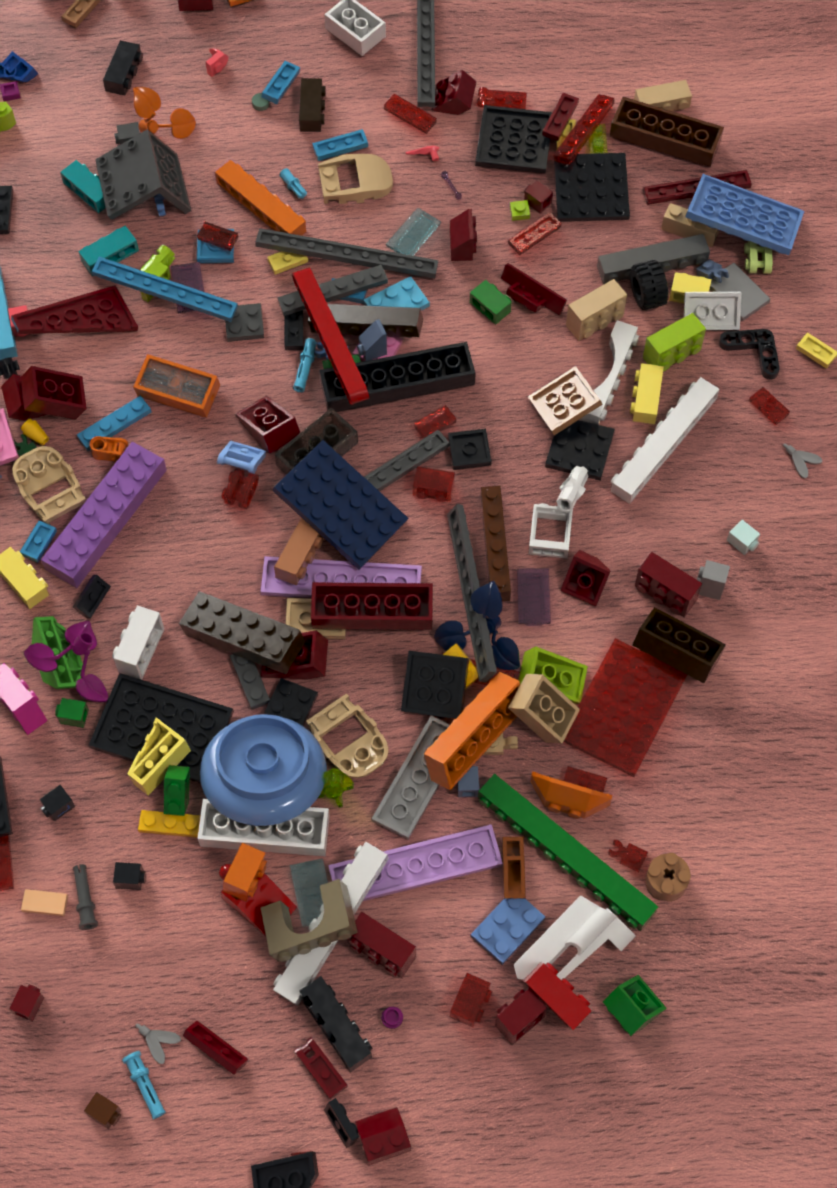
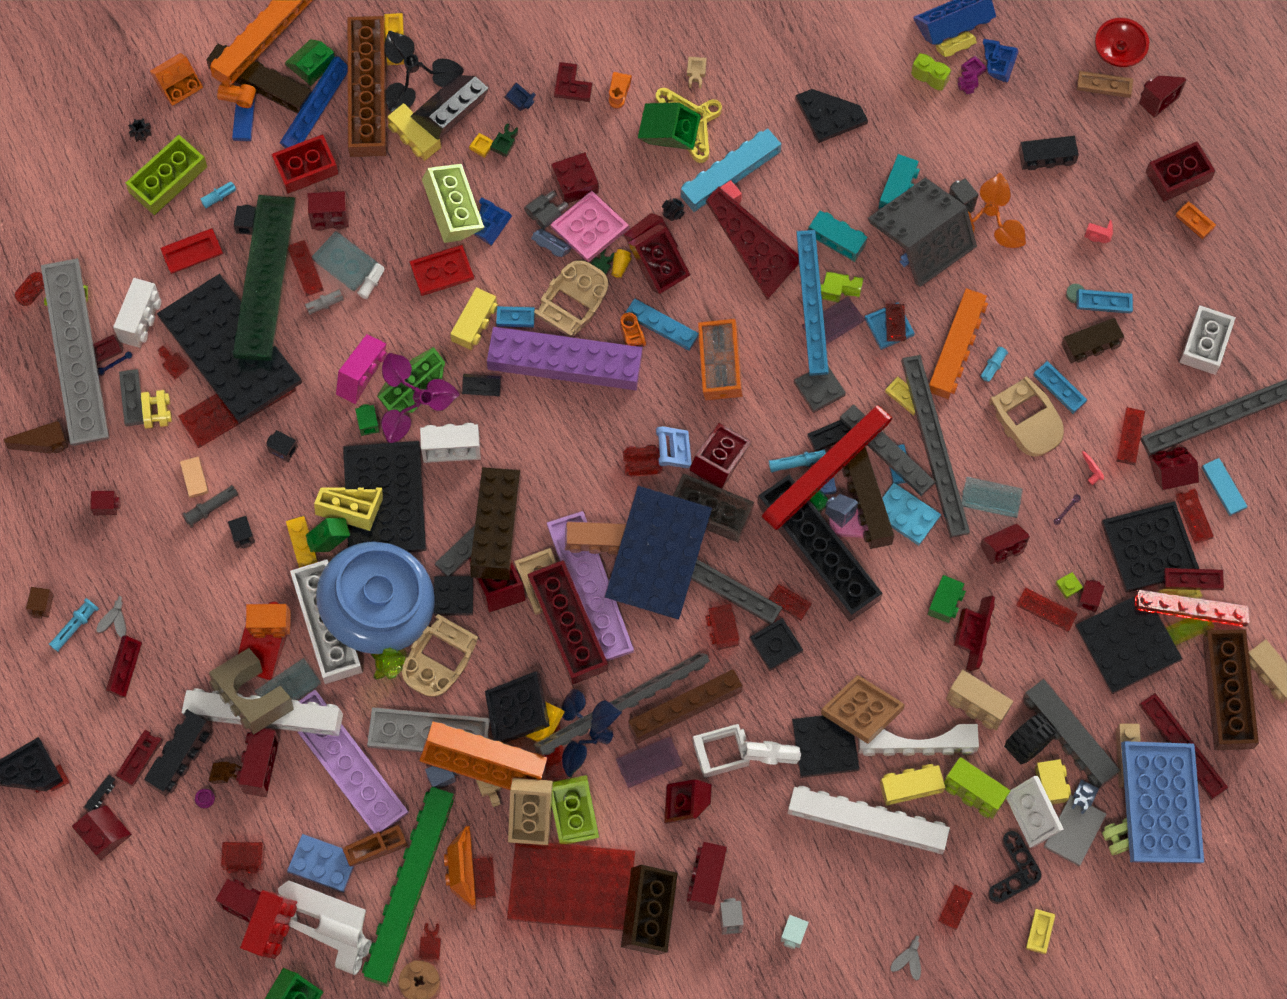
camera: 65 degrees right, 5 degrees up
(22, 98) = (967, 82): none -> magenta gear
(373, 987) = (222, 772): none -> reddish brown plate
(488, 69) = (1224, 487): none -> medium azure tile

